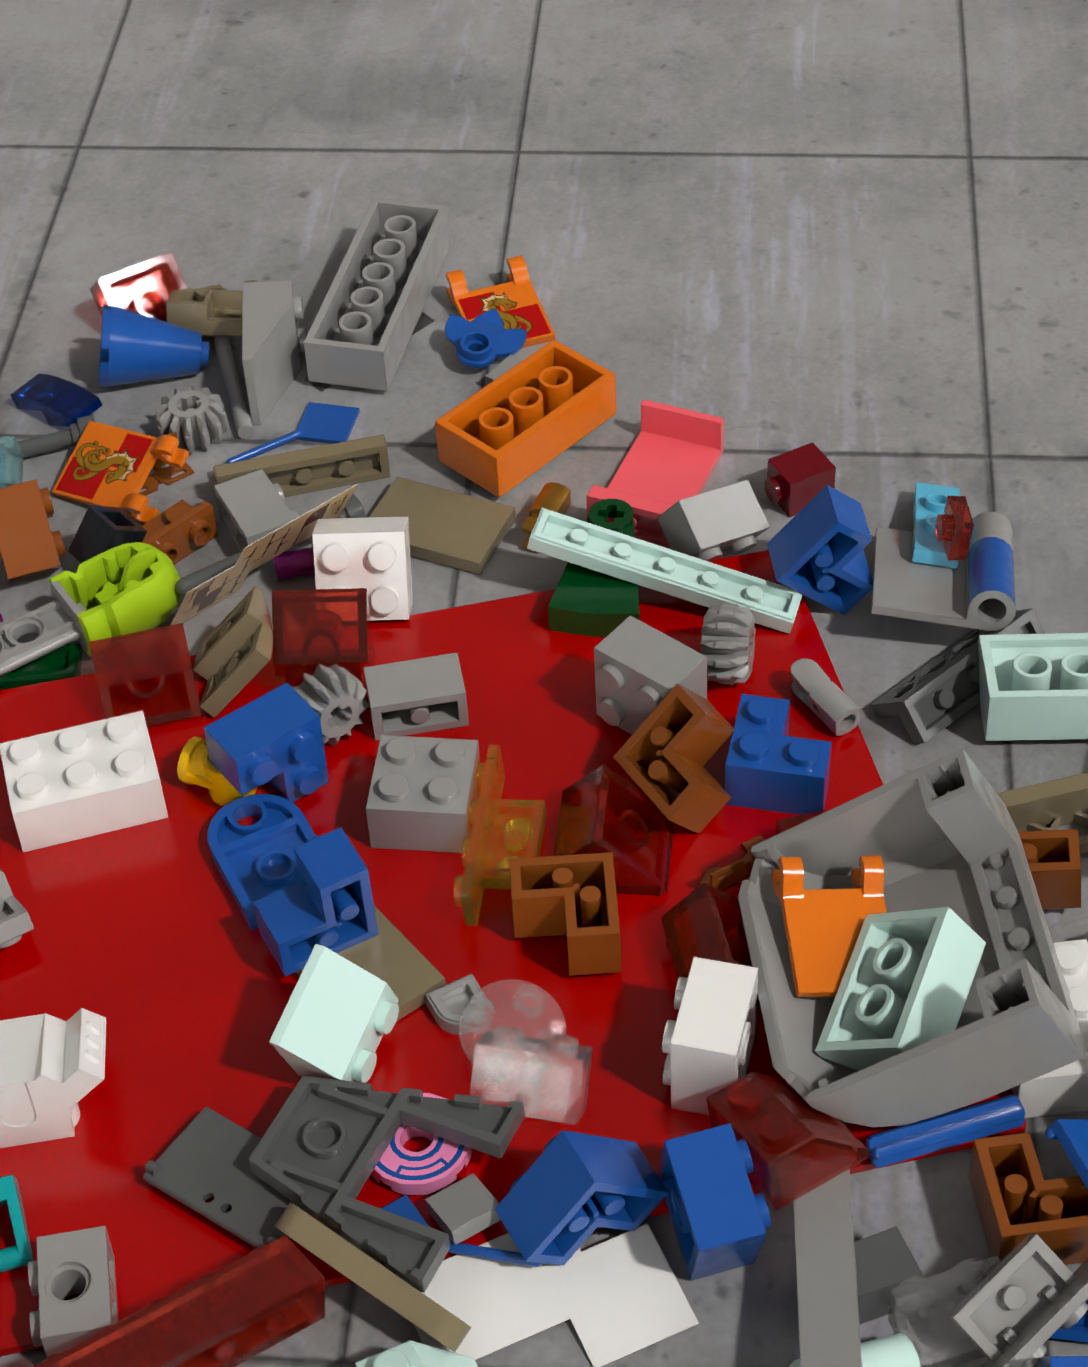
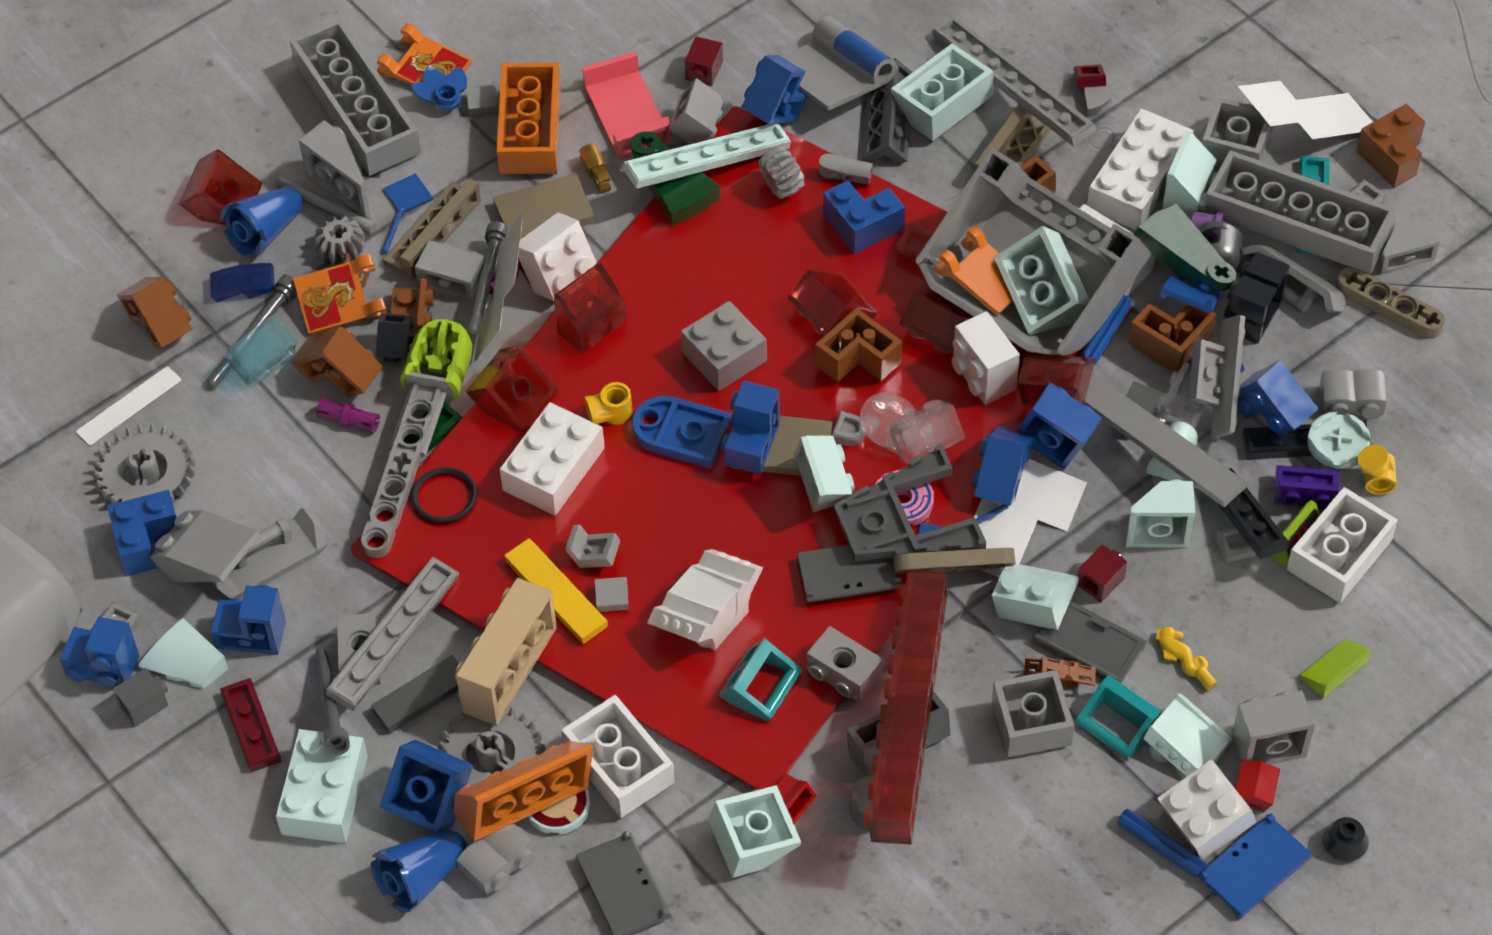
camera: 45 degrees left, 10 degrees up
(207, 310) = (270, 168): dark tan slope -> none
(235, 651) = (552, 341): dark tan slope -> none
(270, 742) = (636, 371): blue brick -> none
(336, 698) = (628, 336): light grey gear -> none
(416, 696) = (658, 302): light grey brick -> none
(463, 1208) = (955, 507): light grey tile -> none
(499, 833) = (786, 341): clear yellow bracket -> none
(638, 670) = (774, 218): light grey brick -> none
(670, 754) = (820, 248): dark orange brick -> none
(733, 873) = (899, 271): dark orange piece -> none
(927, 503) = (797, 42): medium azure plate -> none
(955, 528) = (825, 38): clear red plate -> none

